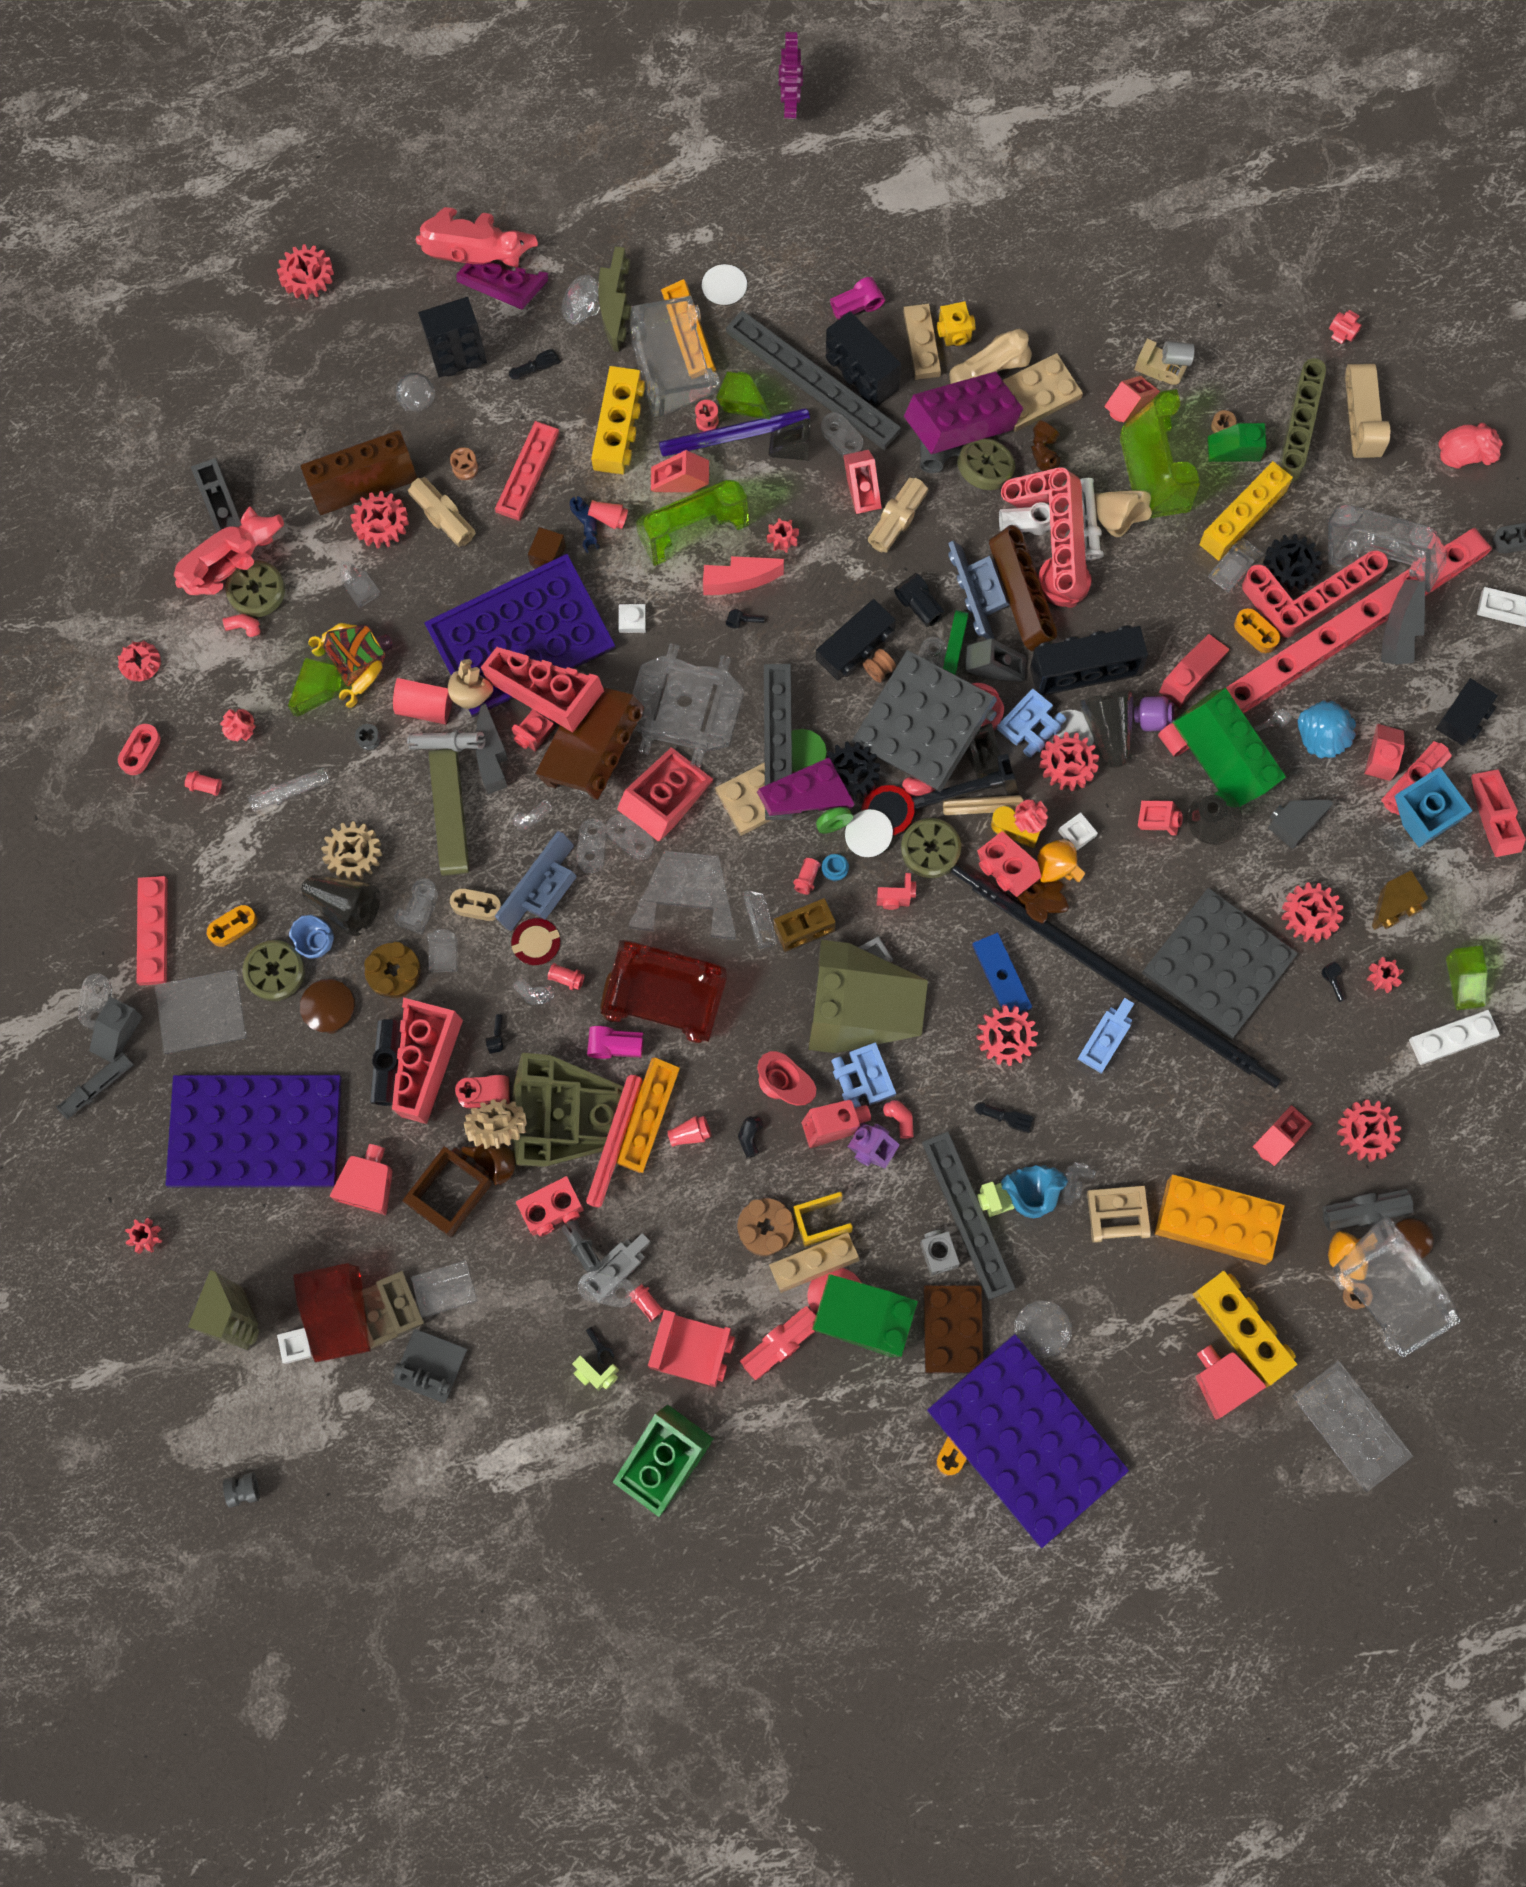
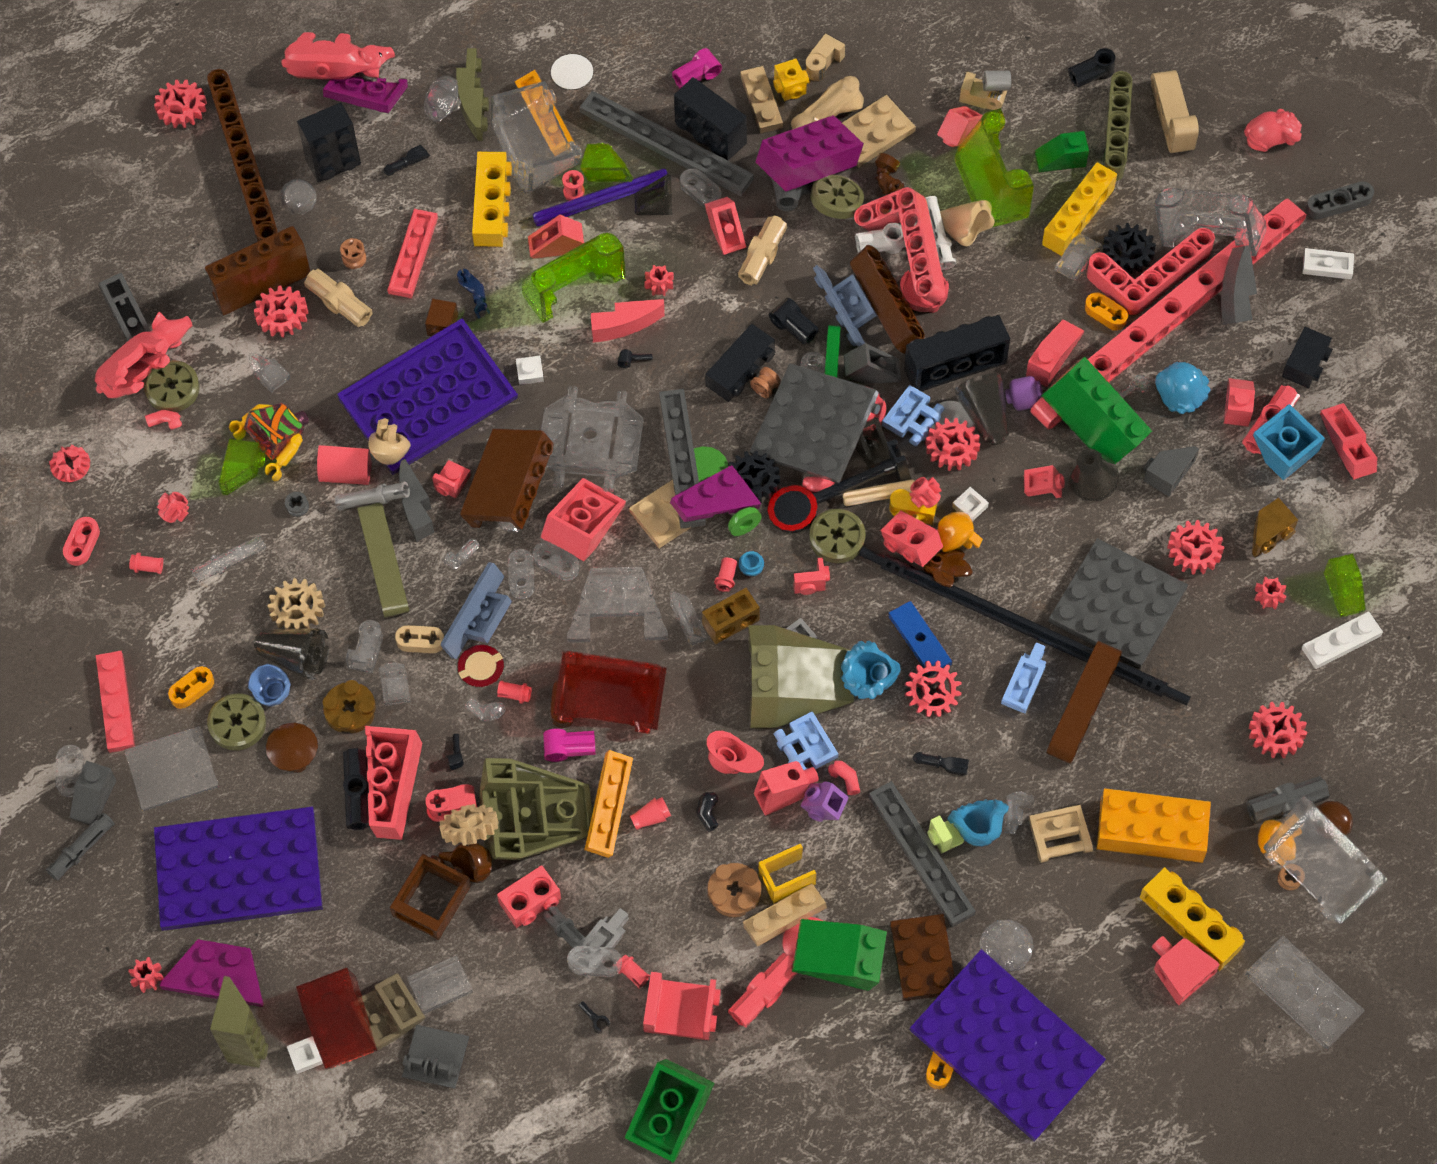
camera: 10 degrees left, 10 degrees down
(217, 1242) = (206, 964): none -> magenta wing
(362, 332) = (227, 112): none -> reddish brown beam
(365, 1182) = (350, 899): coral torso -> none
(546, 688) = (460, 435): coral wedge -> none
(587, 1374) = (587, 1041): yellowish green bracket -> none
(608, 513) = (495, 280): coral cone -> none
(614, 1141) = (581, 830): coral axle -> none
(869, 833) = (778, 530): white sticker -> none
(939, 1265) = (900, 900): light grey brick -> none
(941, 1007) = (868, 670): none -> dark azure hair
(994, 300) = (822, 56): none -> tan leg
(1166, 1072) = (1084, 702): none -> reddish brown beam
(1222, 415) = (1046, 130): medium nougat bush -> none
(1282, 1135) = (1199, 745): coral slope -> none
(1284, 350) = (1093, 68): none -> black piece
(1330, 973) = (1220, 599): black hand -> none
(1345, 326) = (1144, 42): coral gear -> none

